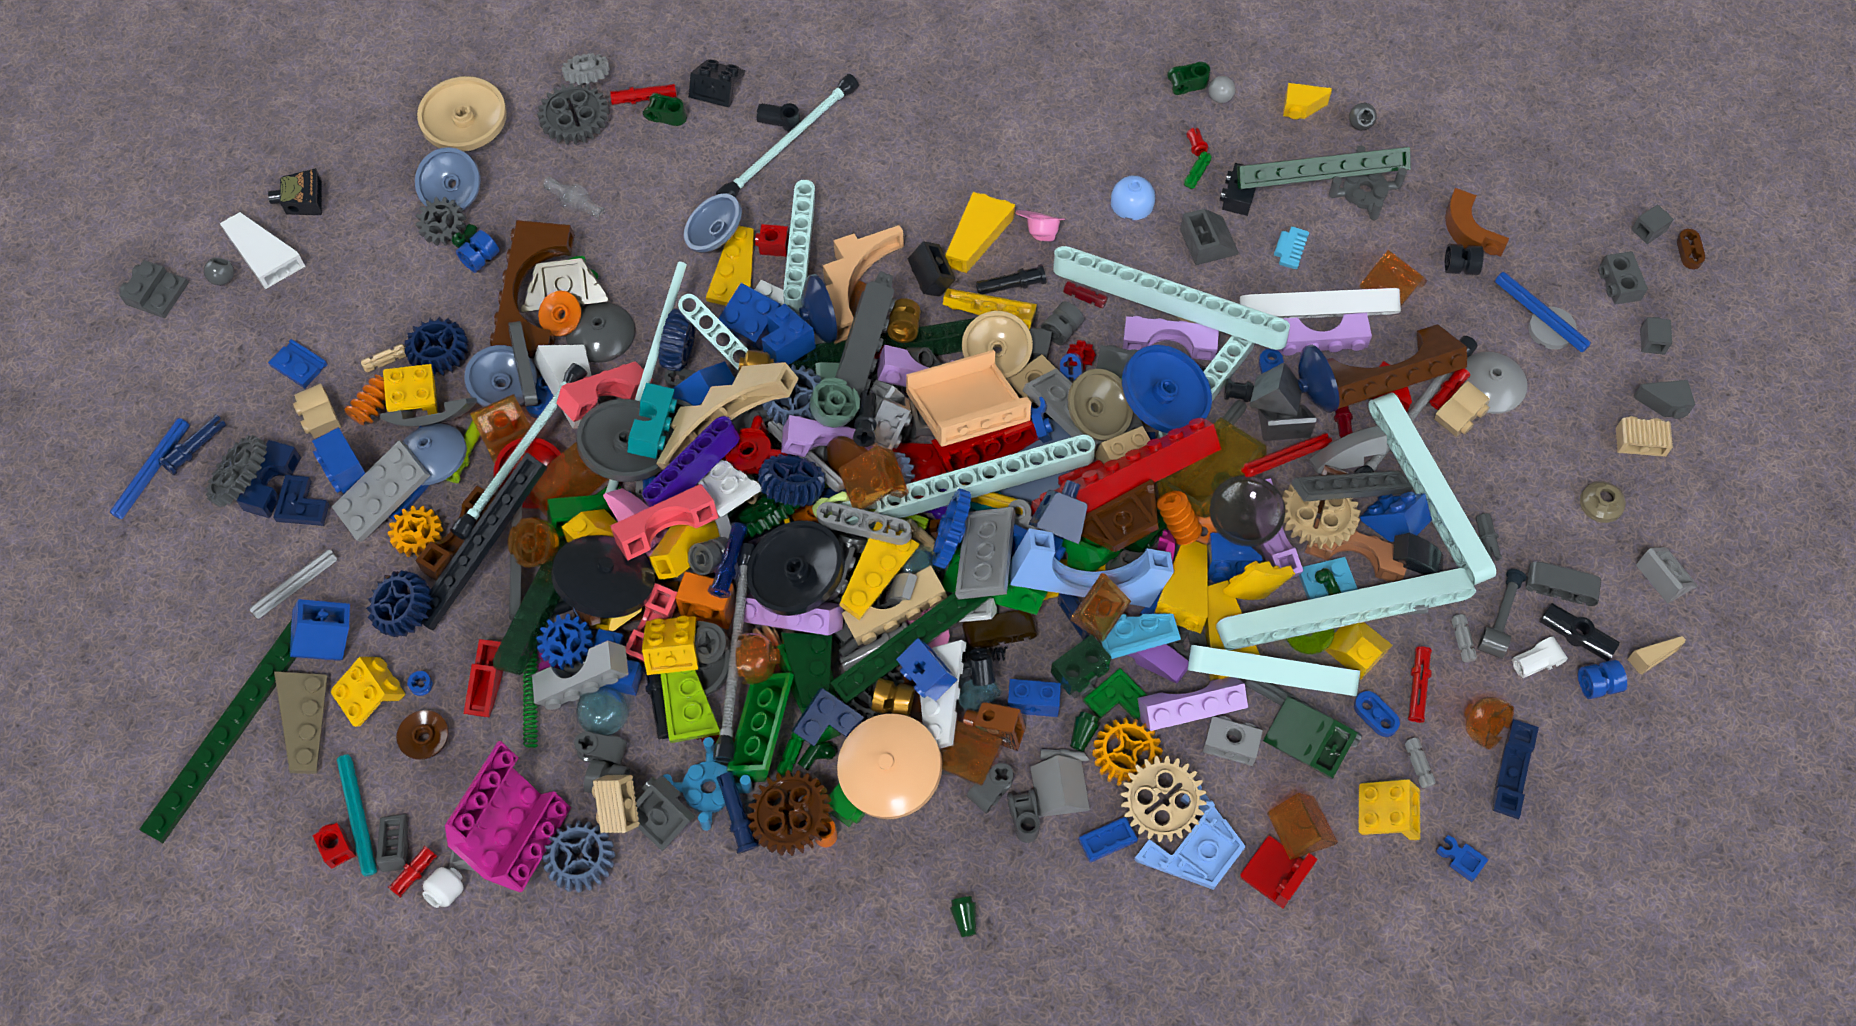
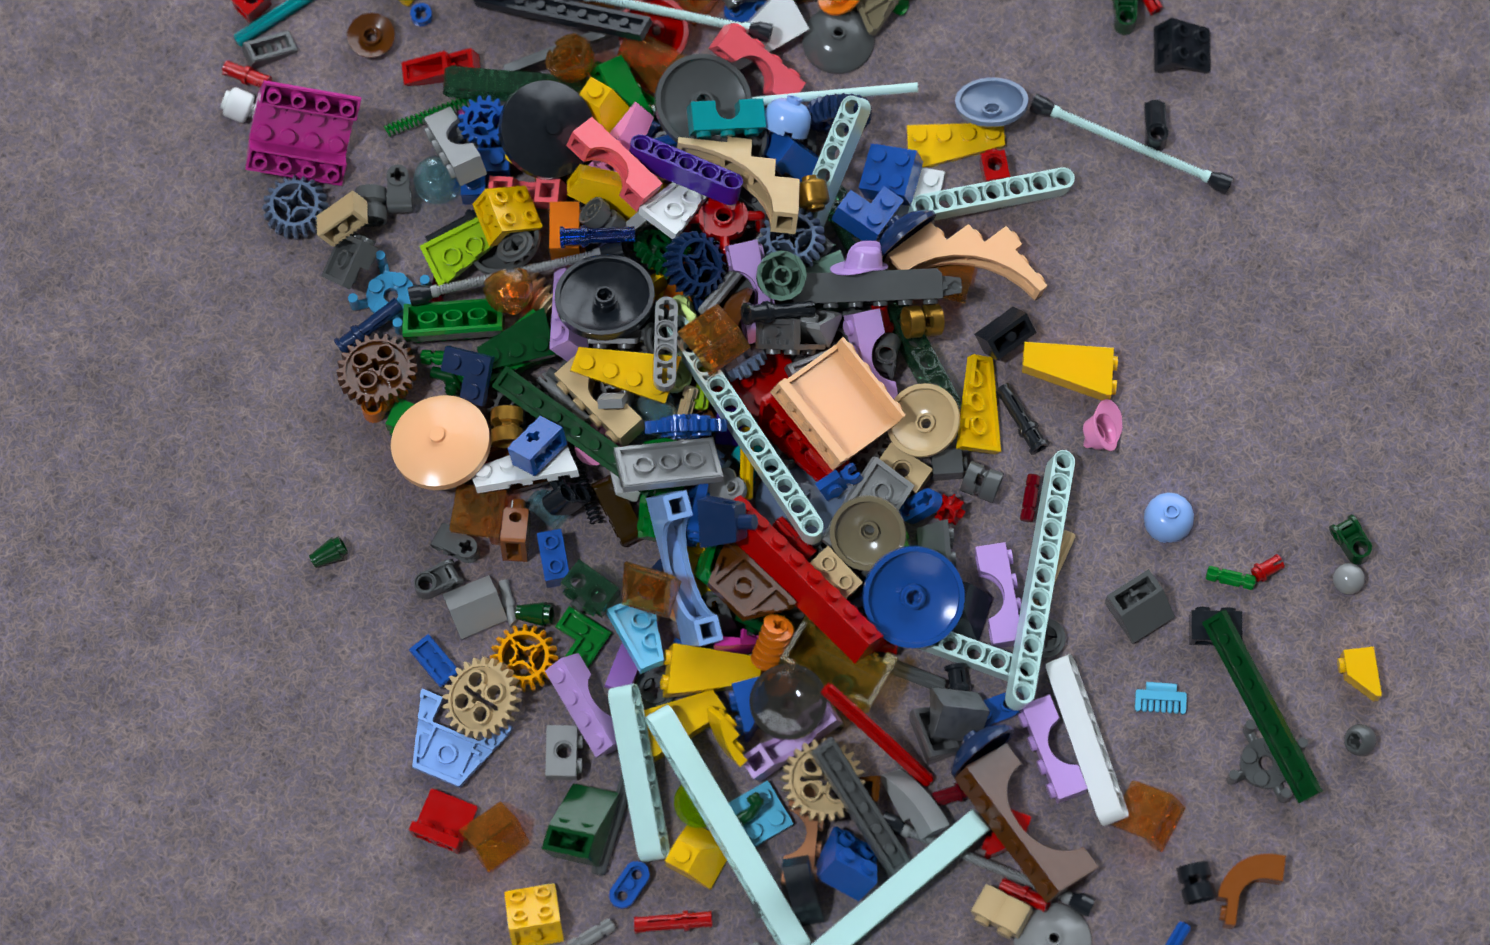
camera: 75 degrees right, 10 degrees up
(669, 371) = (788, 116): none -> light blue cylinder
(836, 344) = (861, 258): none -> lavender piece

